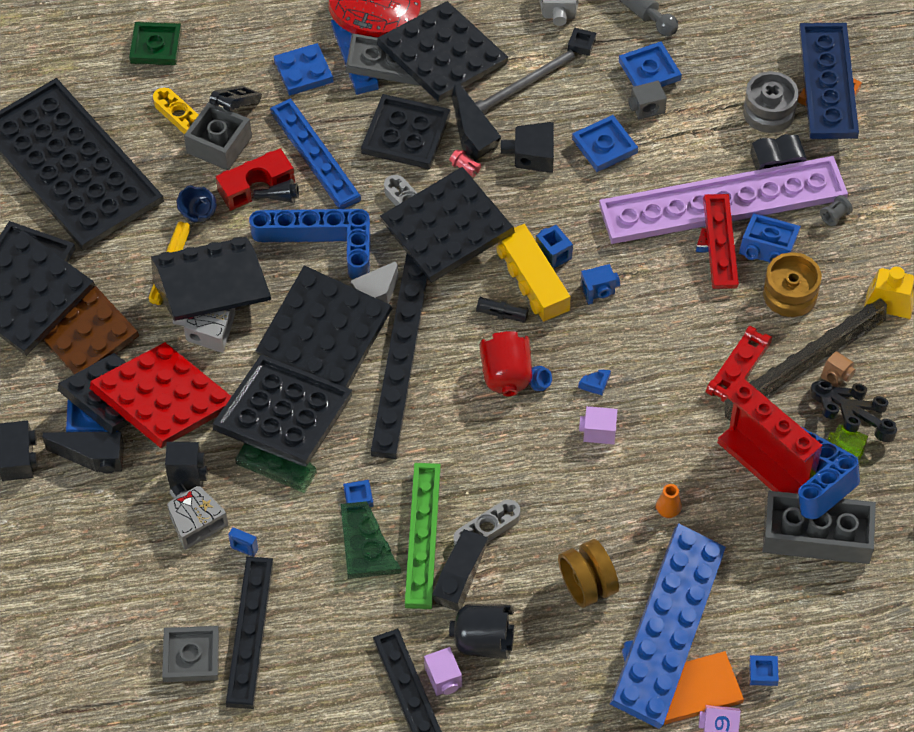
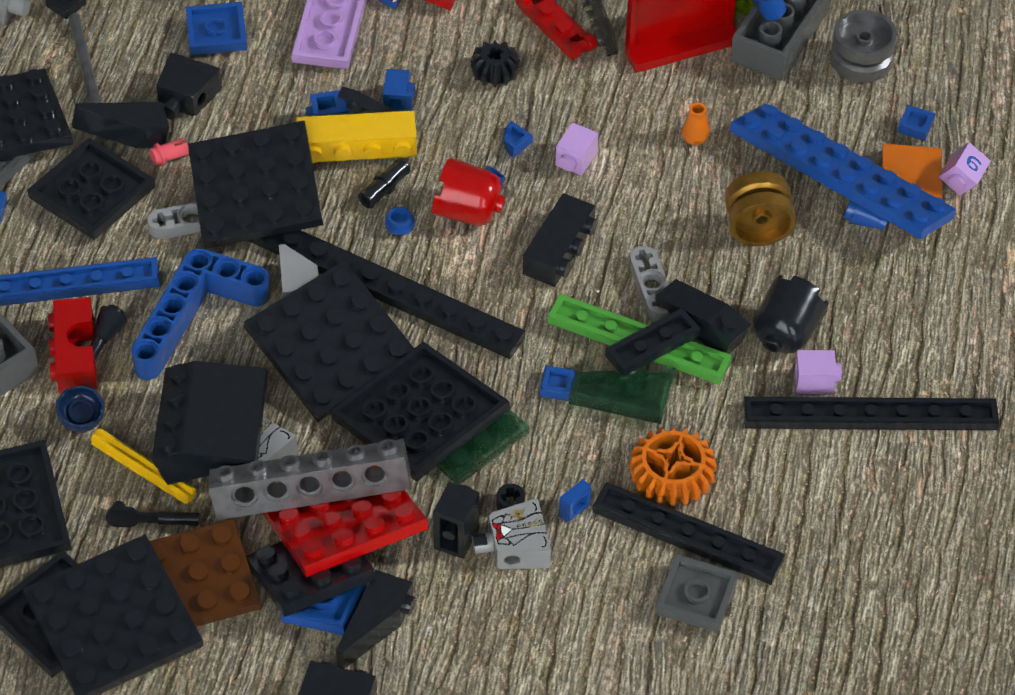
camera: 70 degrees left, 5 degrees down
(121, 265) = (124, 516): none -> black piece
(175, 359) = (298, 490): none -> flat silver brick
(235, 494) = (509, 490): none -> black bush
(284, 595) = (672, 466): none -> orange gear
(411, 540) = (652, 342): none -> black plate
(468, 333) = (399, 221): none -> blue plate
(497, 445) = (559, 240): none -> black brick
(563, 265) = (360, 102): none -> black plate
(664, 337) = (495, 63): none -> black gear
(826, 599) = (863, 45): none -> flat silver wheel

